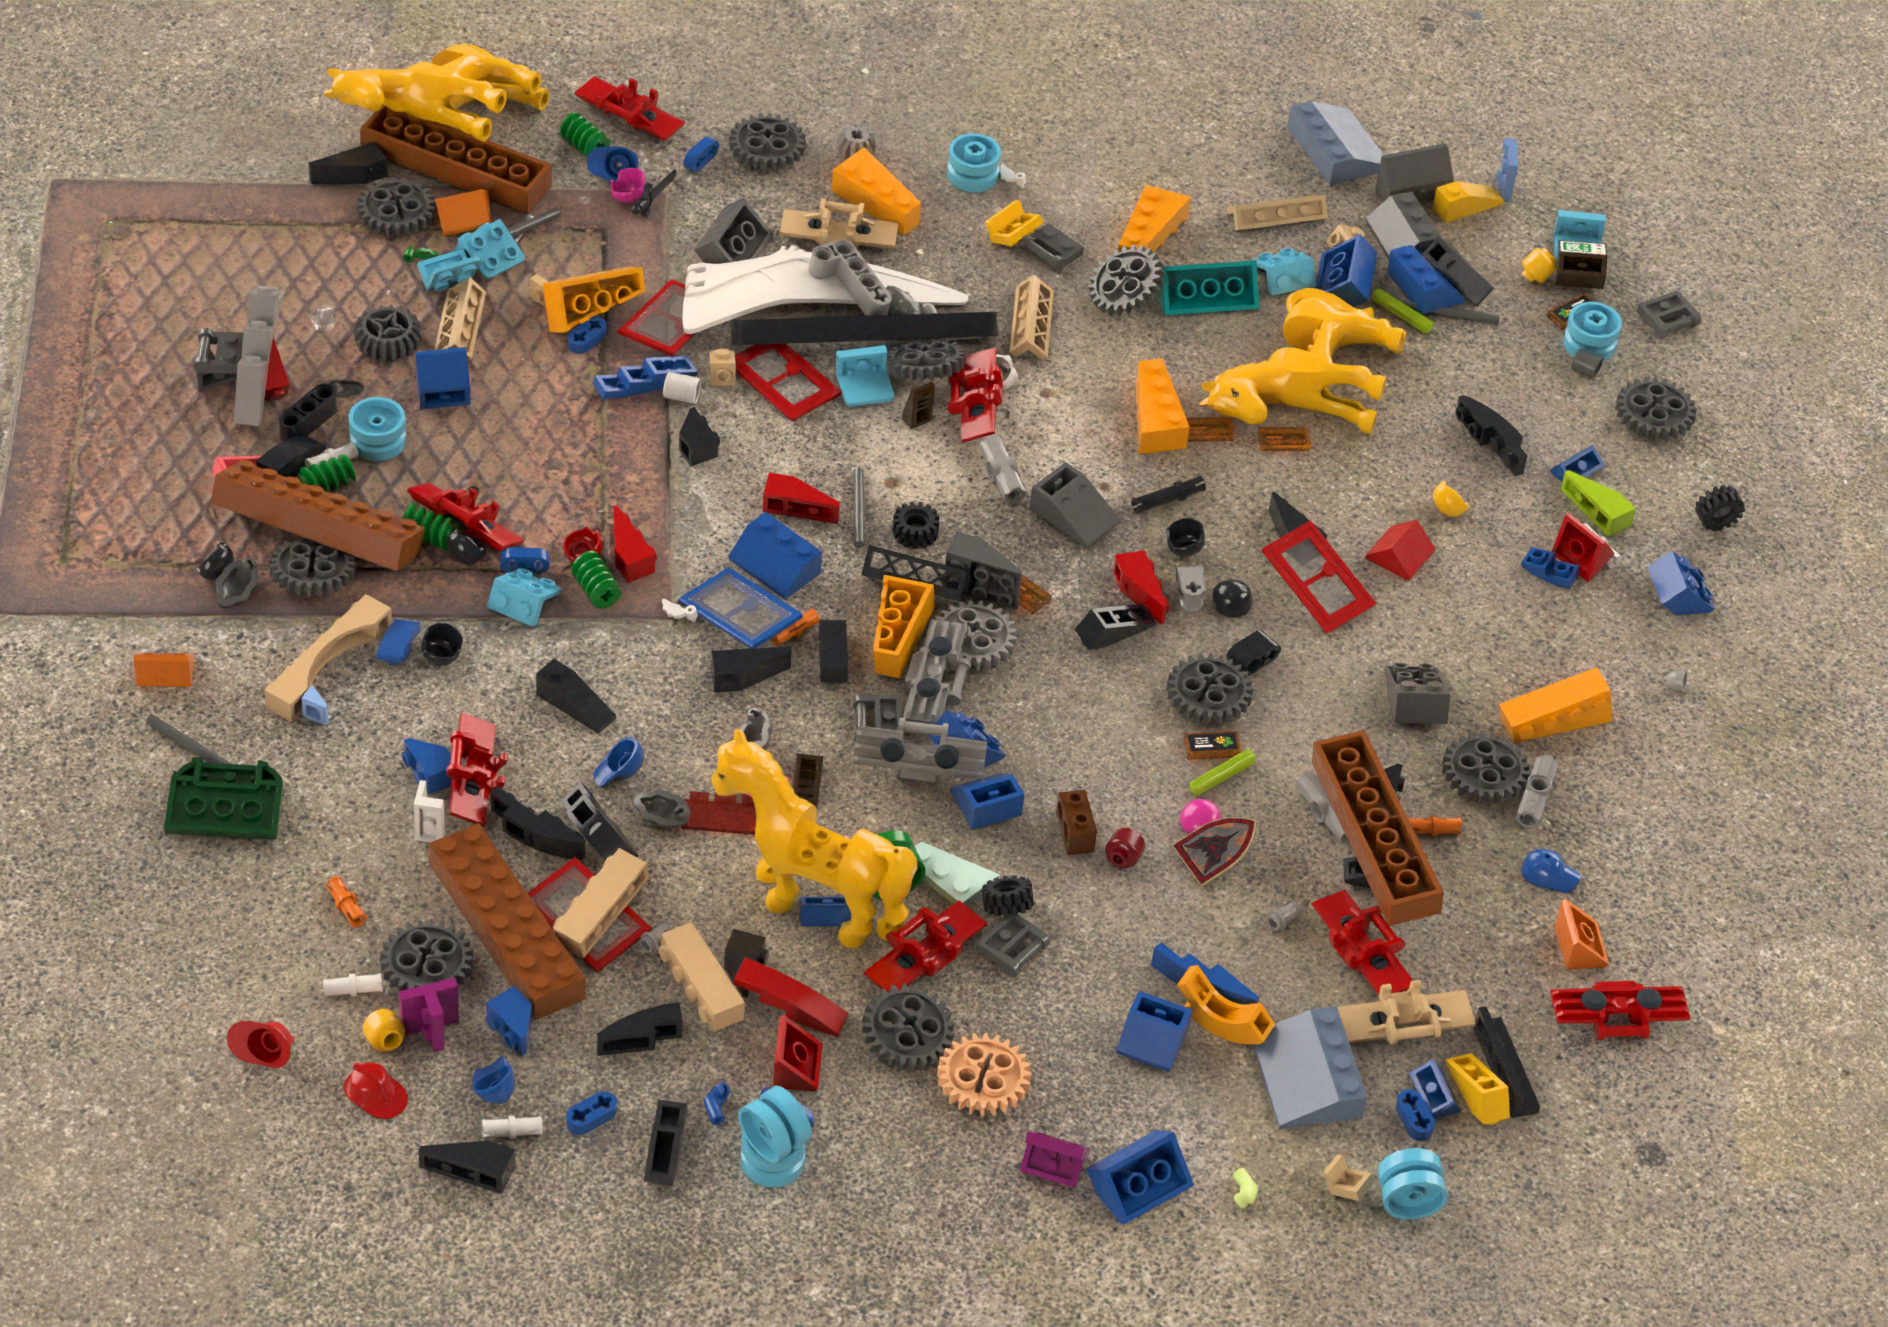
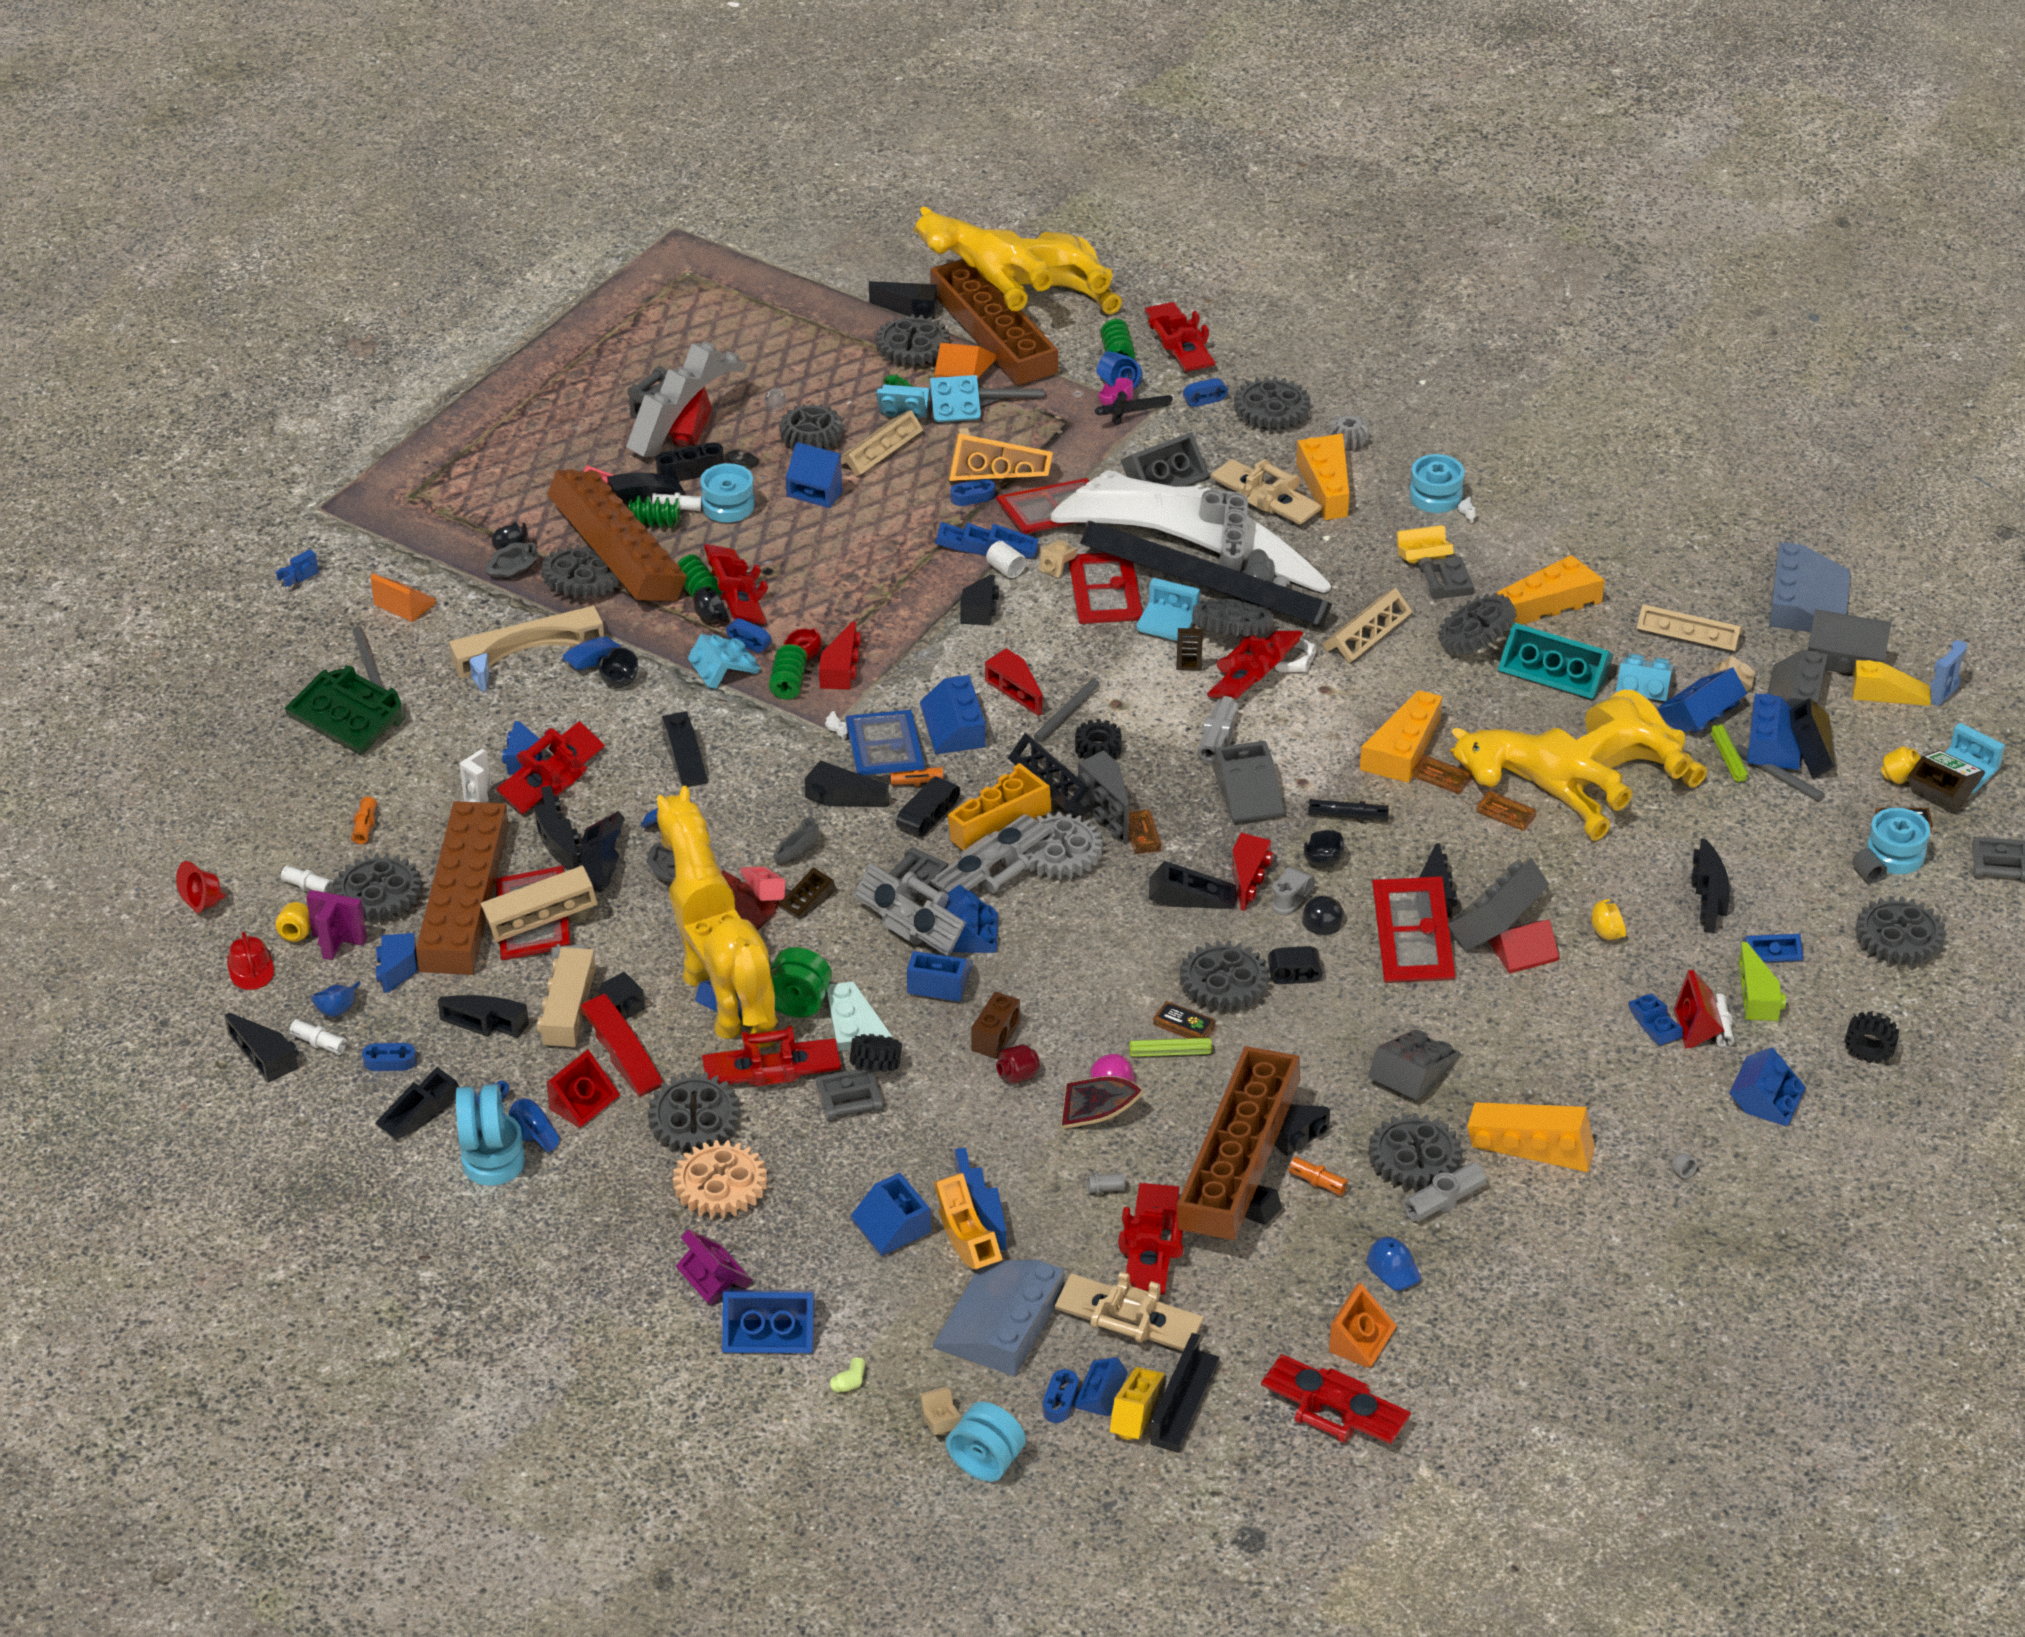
camera: 40 degrees right, 5 degrees down
(37, 679) = (300, 568): none -> blue plate
(1367, 525) = (1499, 904): none -> dark grey wedge

